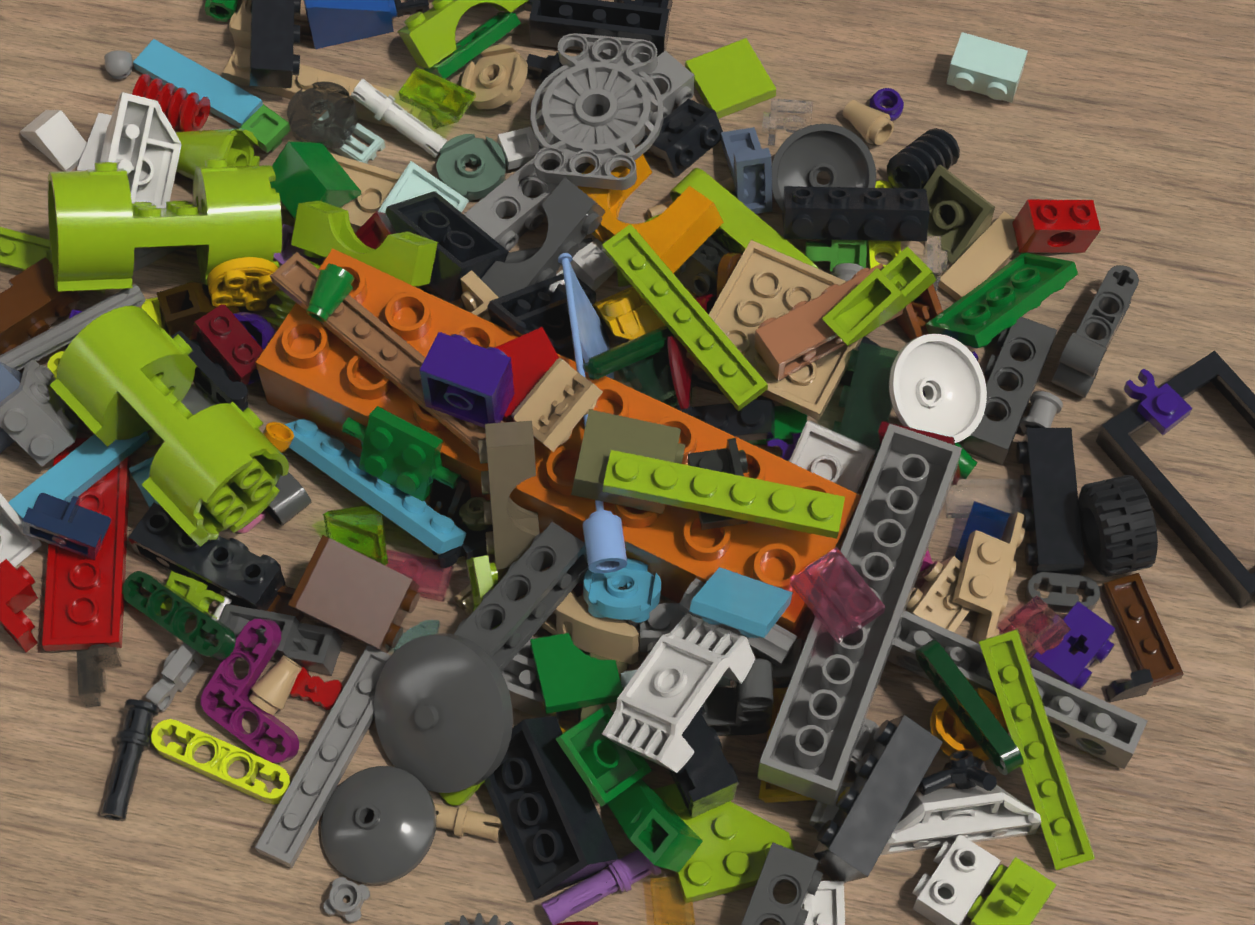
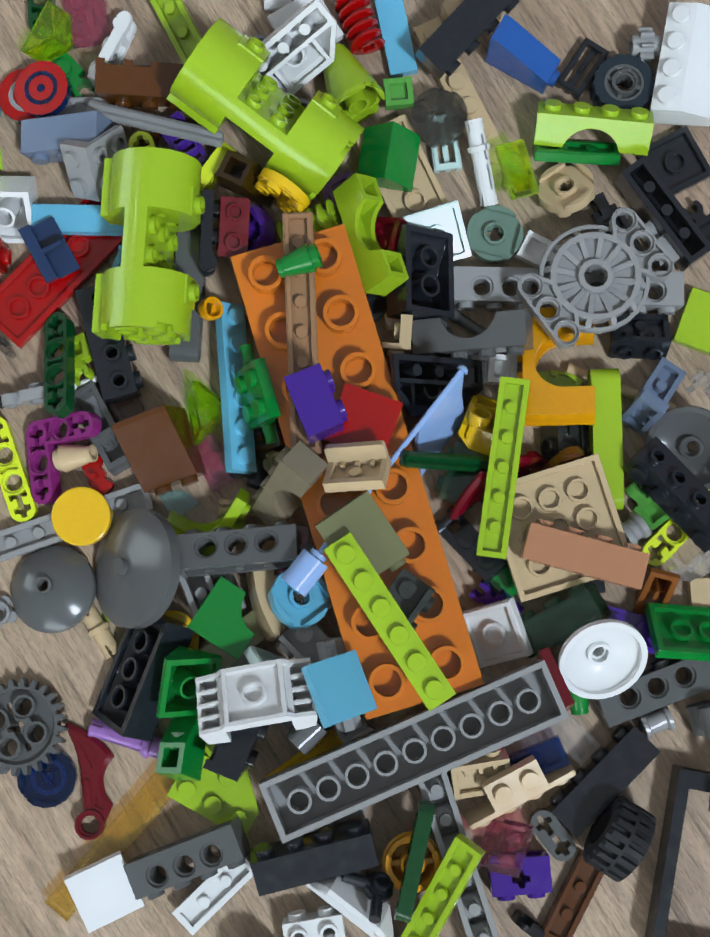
camera: 45 degrees right, 20 degrees up
(340, 724) = (81, 516): none -> yellow tile
(837, 595) = (399, 737): clear pink plate -> none
(880, 297) = (621, 578): lime slope -> none

